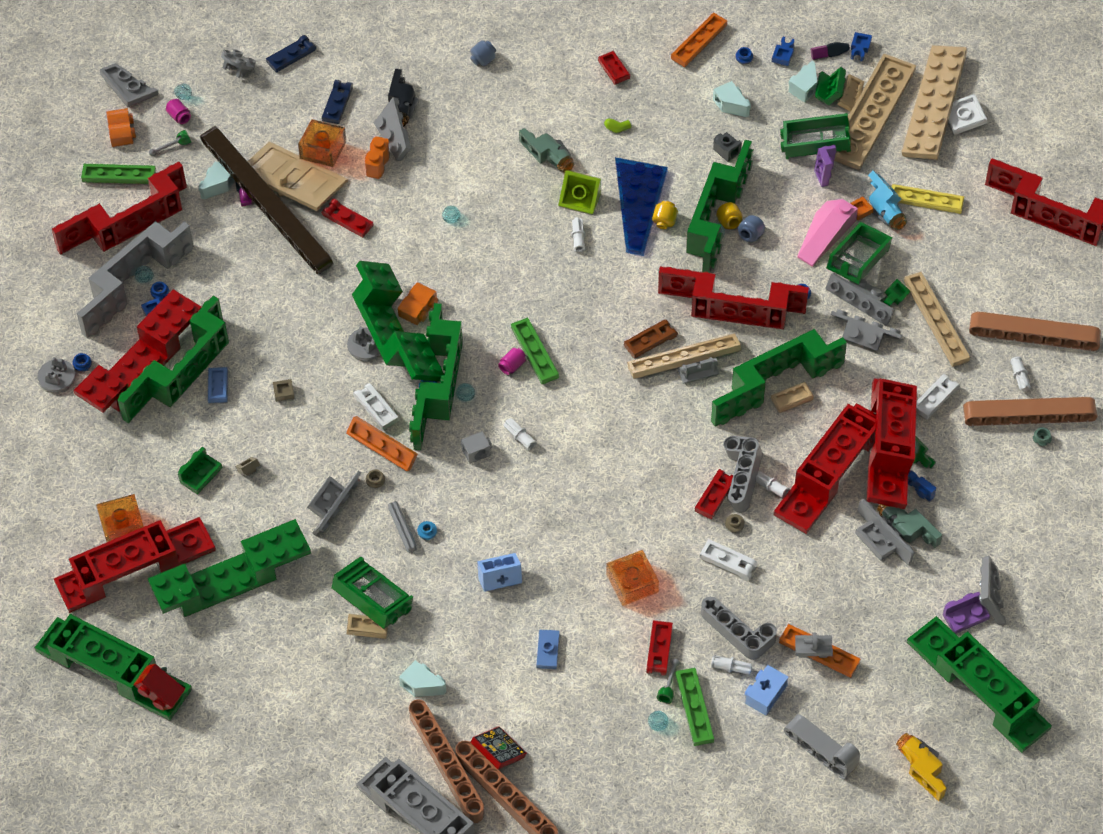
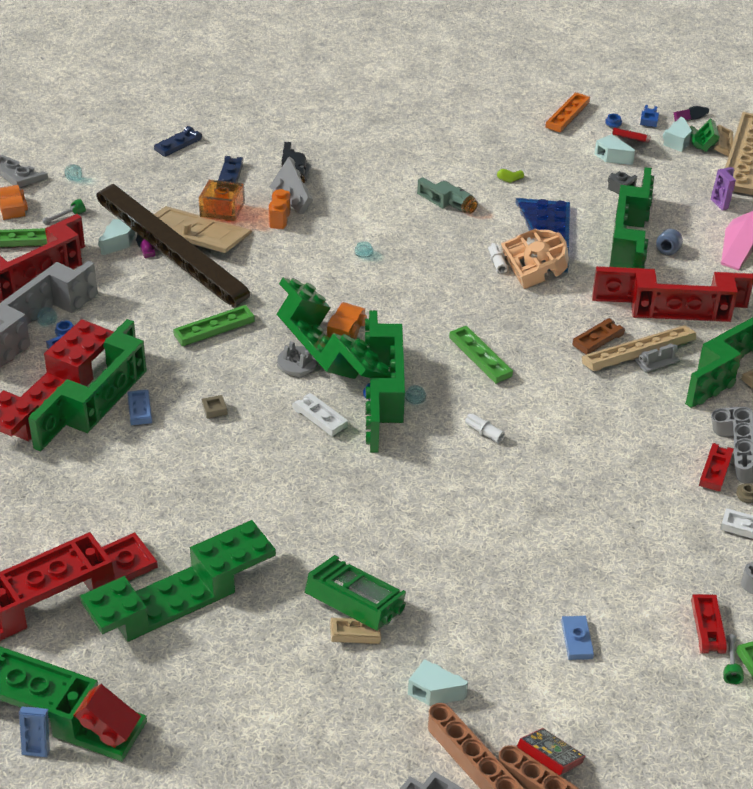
camera: 10 degrees left, 15 degrees down
(104, 692) = (34, 731): none -> medium blue plate
(119, 517) = (37, 535): clear orange brick -> none
(178, 111) = (70, 187): dark pink brick -> none
(198, 471) = (128, 487): green bracket -> none
(236, 59) = (131, 148): light grey plate -> none
(248, 466) = (185, 480): dark tan plate -> none
(295, 296) = (213, 325): none -> bright green plate
(328, 498) = (283, 505): light grey bracket -> none
(347, 218) = (257, 260): red plate -> none
(375, 474) = (333, 481): dark tan plate -> none
(381, 443) = (334, 446): orange plate -> none
(402, 526) = (374, 526): light grey axle -> none
(427, 534) = (403, 527): dark azure plate -> none
(476, 447) = (440, 442): light grey brick -> none
(483, 53) = (366, 130): sand blue head -> none
(499, 572) = (501, 559): light blue brick -> none
(512, 361) = (459, 363): dark pink brick -> none
(580, 192) = (490, 222): lime slope -> none
(614, 67) = (494, 135): red plate -> none
(624, 235) = (547, 246): none -> light nougat connector
(632, 577) = (654, 553): clear orange brick -> none
(658, 721) = (734, 703): clear light blue plate -> none
(665, 214) = (580, 236): yellow head -> none
(729, 215) = (651, 231): yellow head -> none
(754, 80) = (631, 135): none -> red tile
(806, 135) = (702, 168): green door -> none
(860, 45) = (718, 108): blue plate -> none

